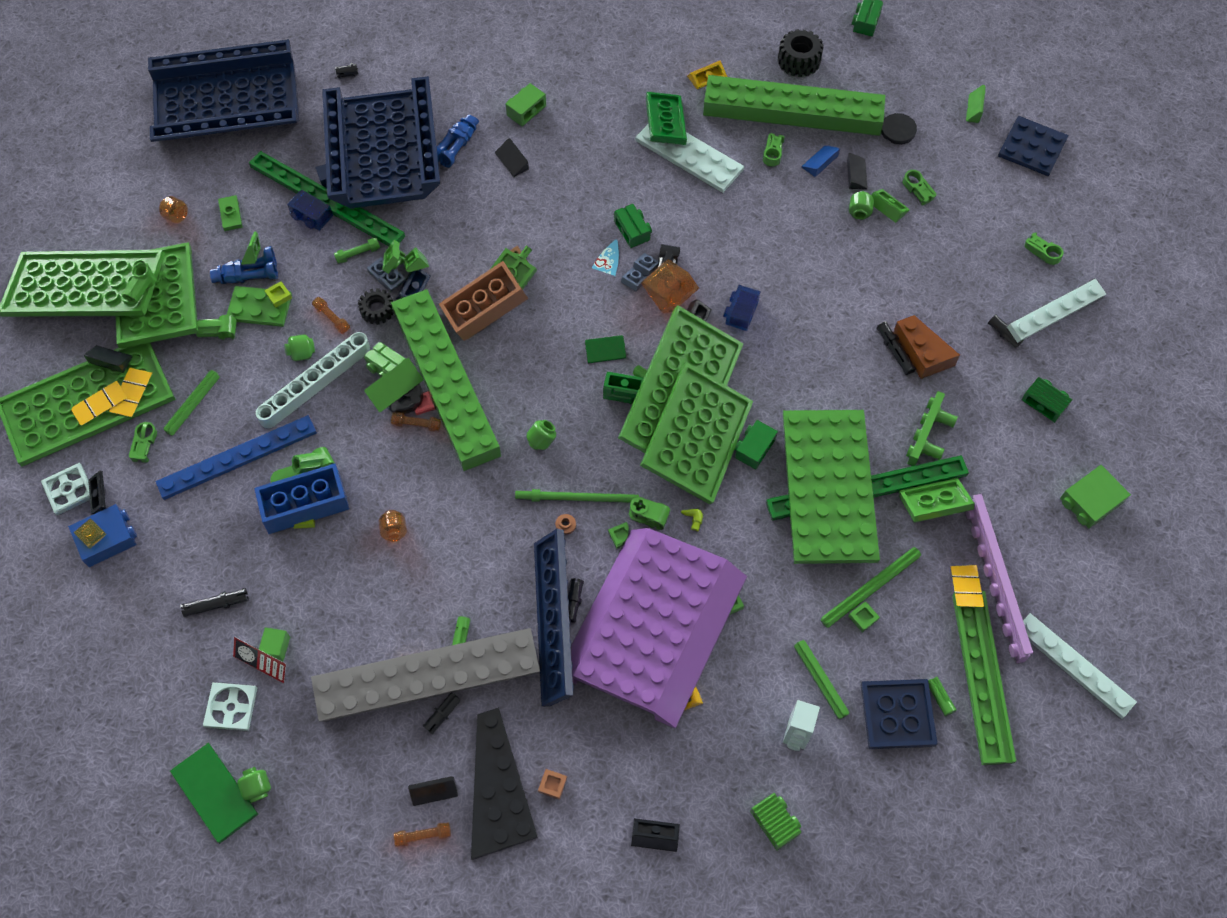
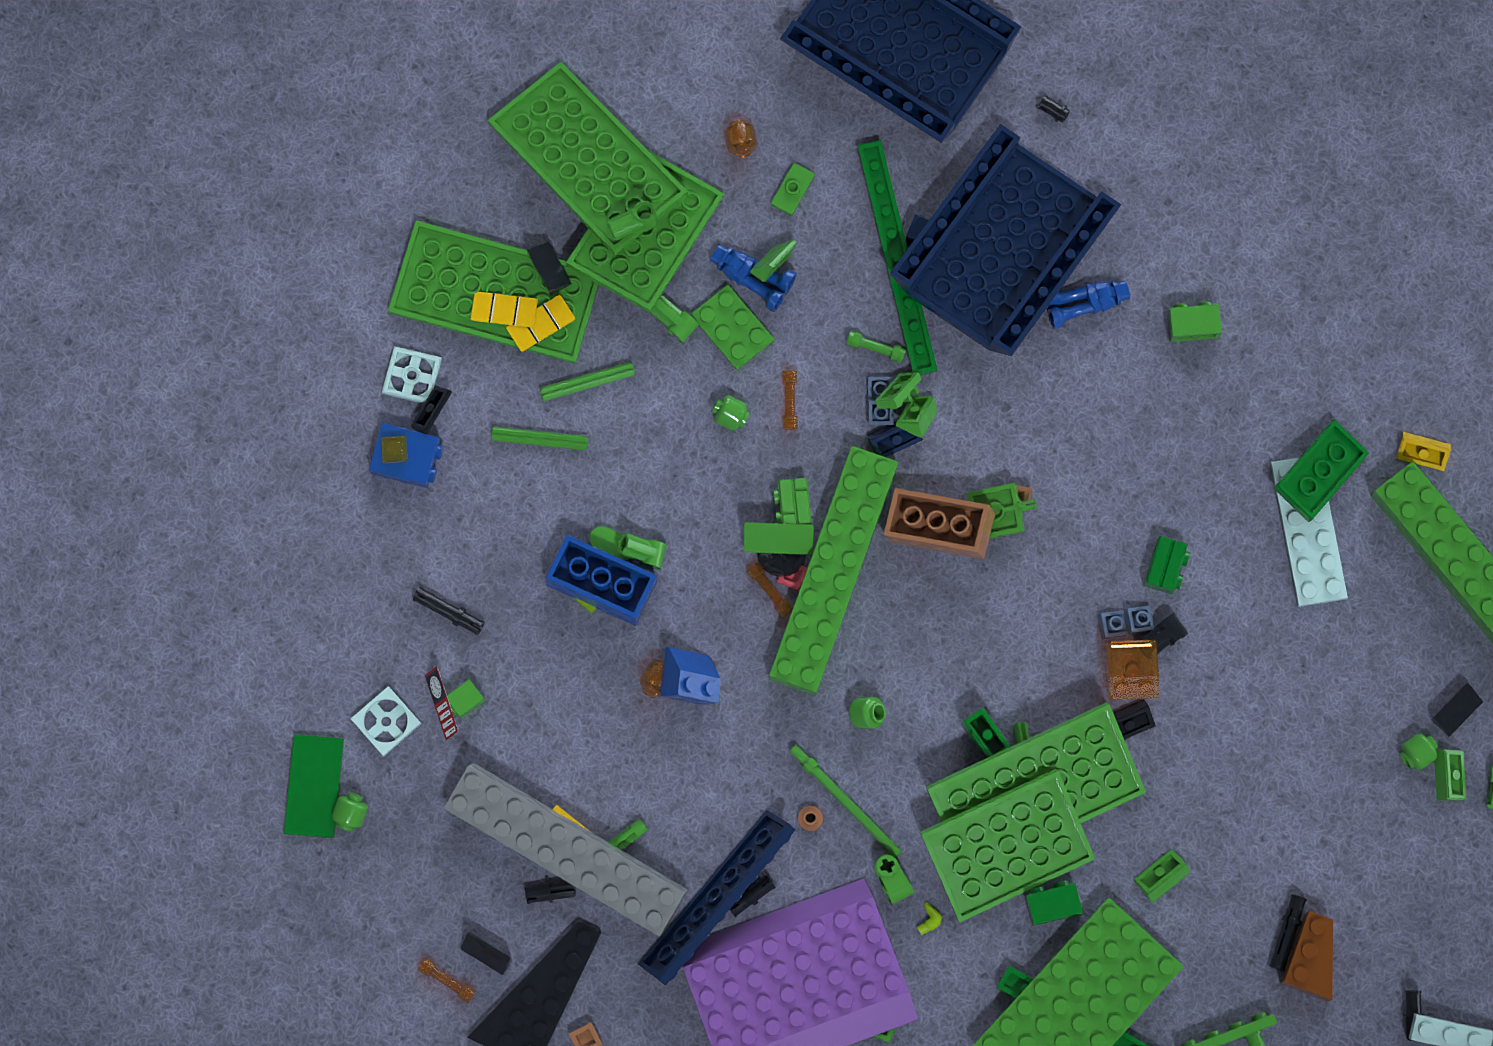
camera: 45 degrees right, 15 degrees up
(141, 445) = (508, 388): bright green piece -> none
(188, 456) = (539, 438): none -> bright green axle
(235, 457) = (582, 478): blue plate -> none
(278, 294) = (756, 337): lime plate -> none
(307, 386) = (702, 456): light aqua beam -> none
(310, 210) = (869, 259): clear blue brick -> none
(372, 297) = (835, 416): black tyre -> none
(413, 507) = (690, 677): none -> blue slope
(512, 158) = (1123, 373): black slope -> none
(605, 349) = (1011, 676): green slope -> none
(608, 259) = (1109, 578): sticker -> none
(619, 534) = (848, 872): bright green tile -> none
(742, 308) = (1182, 754): clear blue brick -> none
(773, 148) = (1400, 604): bright green piece -> none
(797, 379) = (1162, 875): none -> bright green slope
(821, 160) = (1435, 661): blue slope -> none

